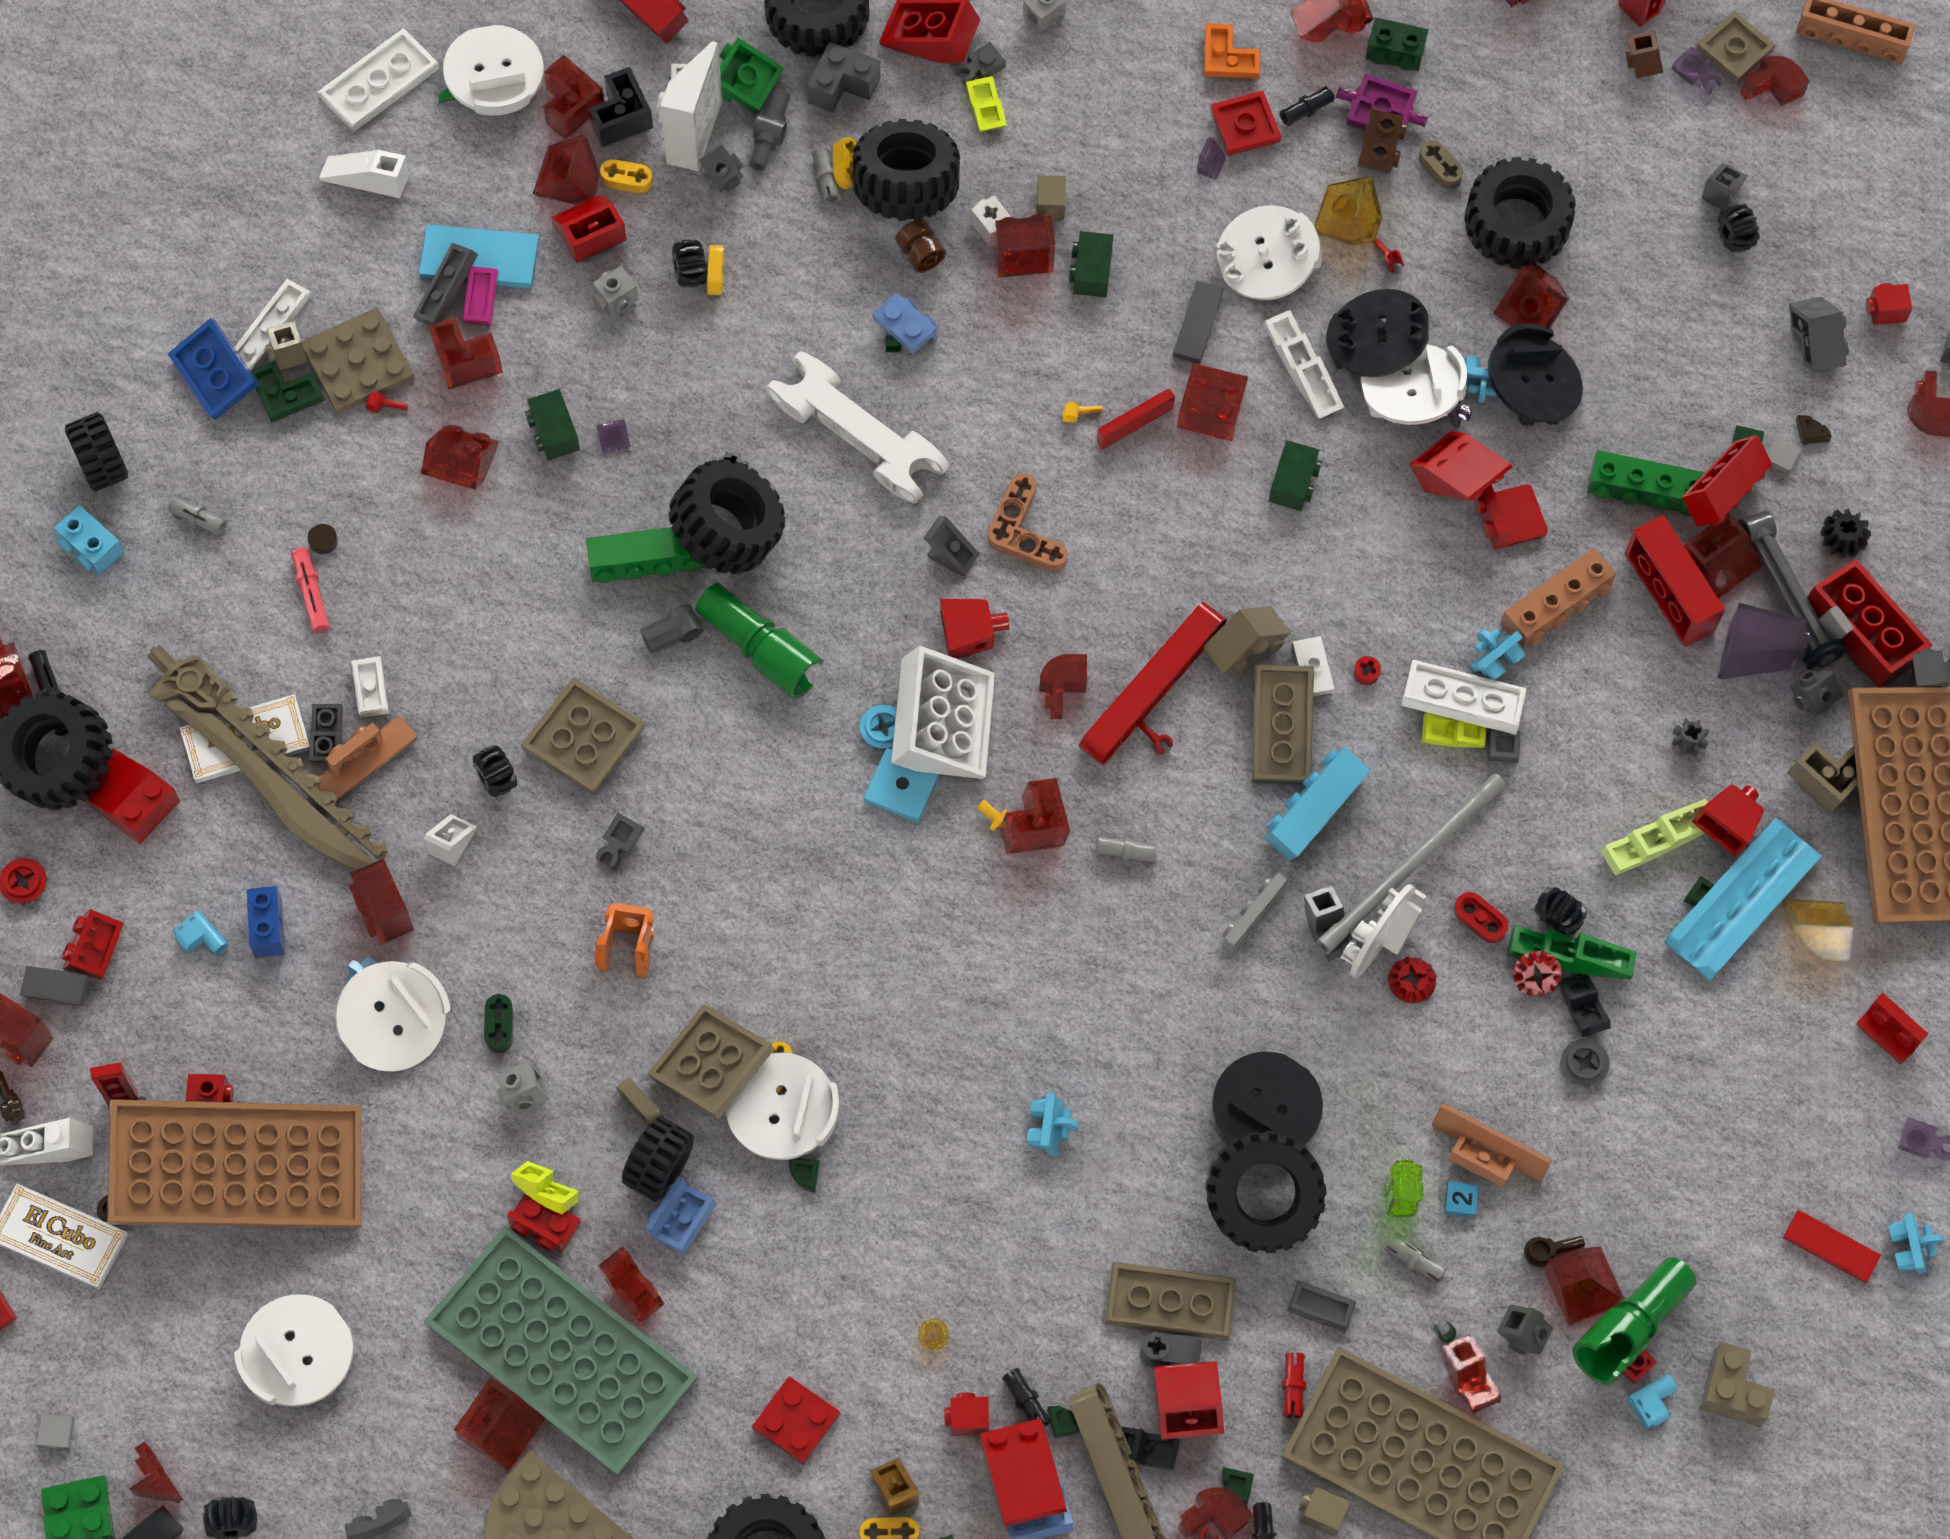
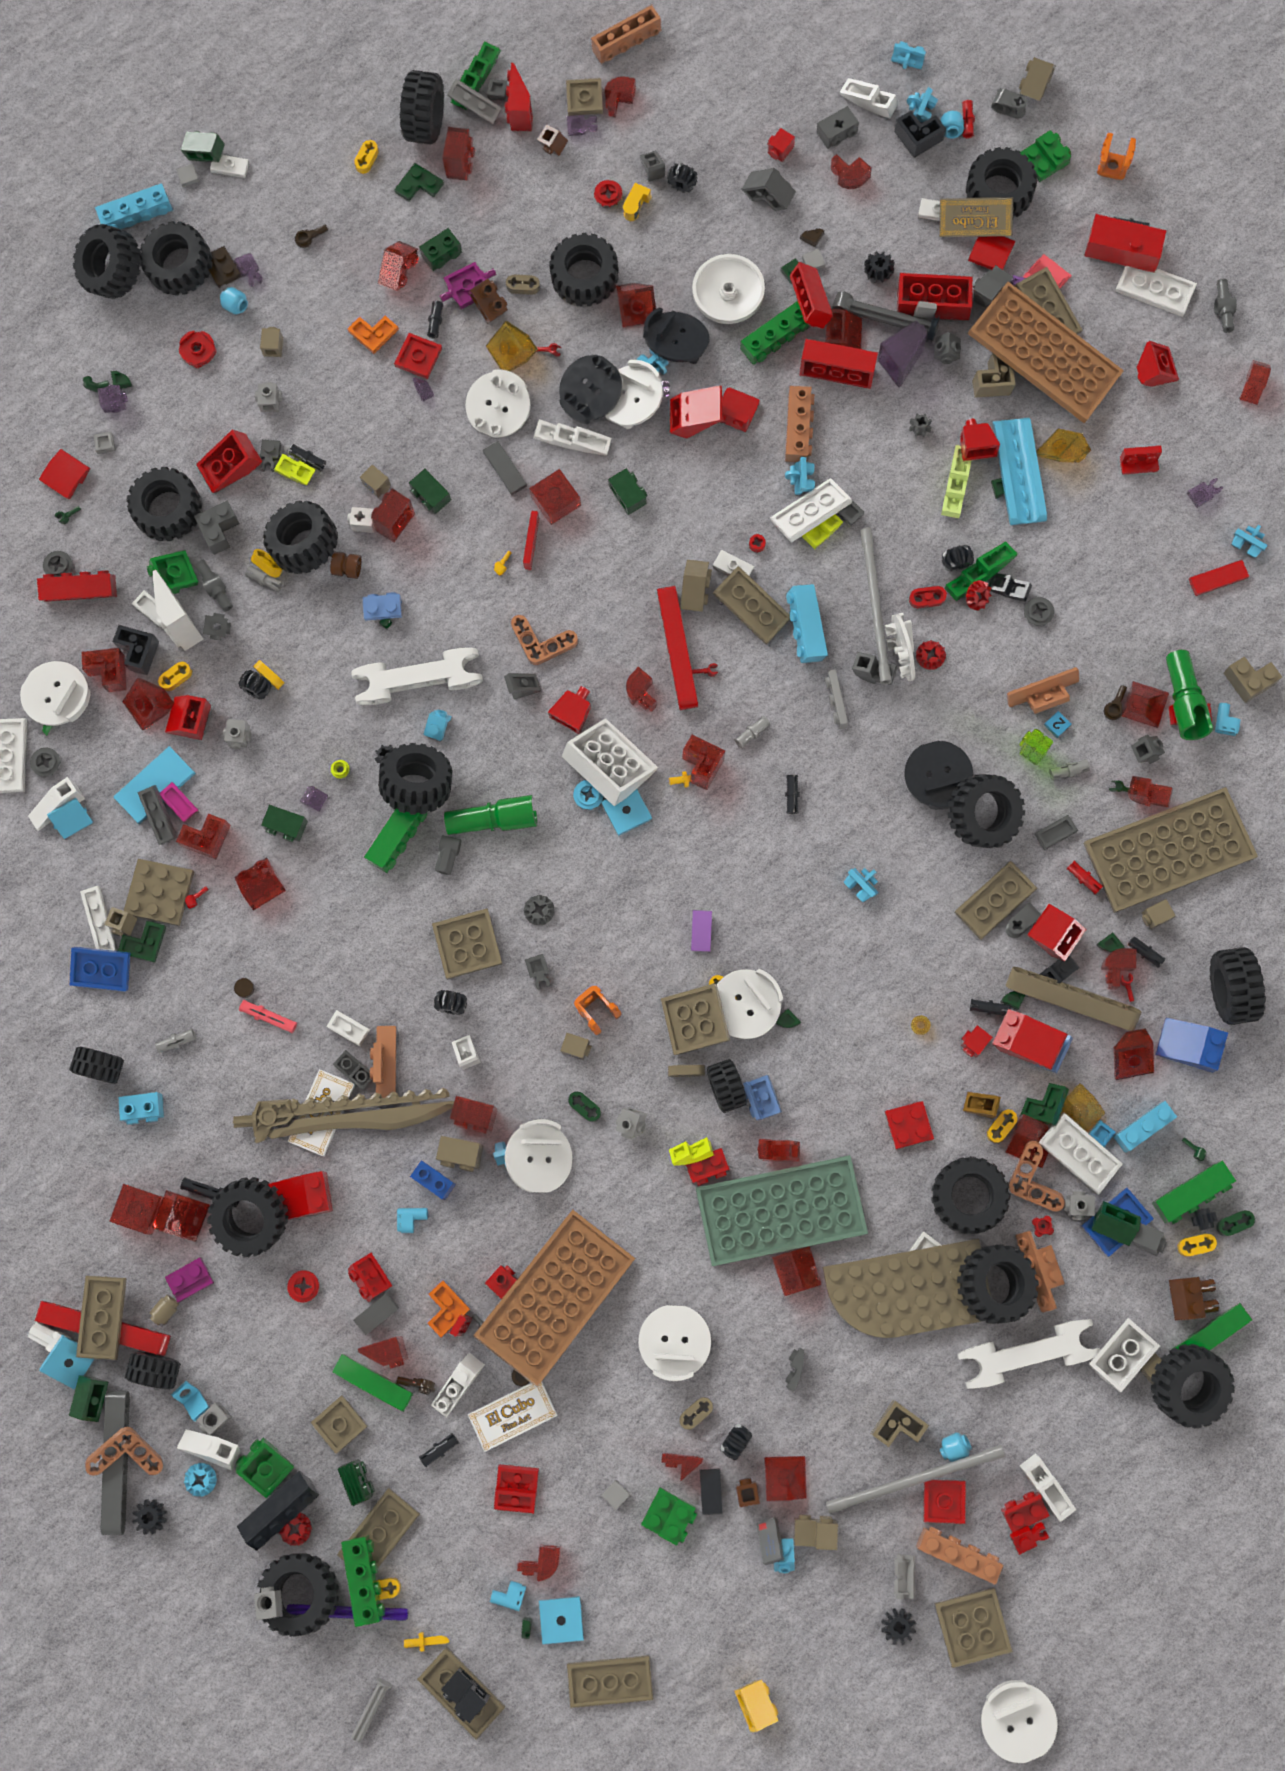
camera: 40 degrees left, 10 degrees up
(135, 1055) = (451, 1308): none -> orange plate
(227, 1454) = (692, 1409): none -> dark tan beam
(320, 923) = (460, 1153): none -> dark tan brick
(361, 199) = (70, 818): none -> medium azure piece
(400, 115) = (37, 759): none -> dark grey gear
(562, 953) = (576, 1046): none -> dark tan brick
(672, 427) = (340, 763): none -> neon yellow plate
(700, 794) = (536, 918): none -> dark grey gear
(818, 494) = (437, 724): none -> medium azure bracket
(828, 984) = (701, 930): none -> medium lavender slope
(1012, 105) = (307, 457): none -> black pin
(1090, 956) = (792, 794): none -> black pin
(1641, 155) = (615, 191): none -> red gear
(1650, 387) = (728, 288): none -> white dish
(1660, 202) = (635, 200): none -> yellow leg

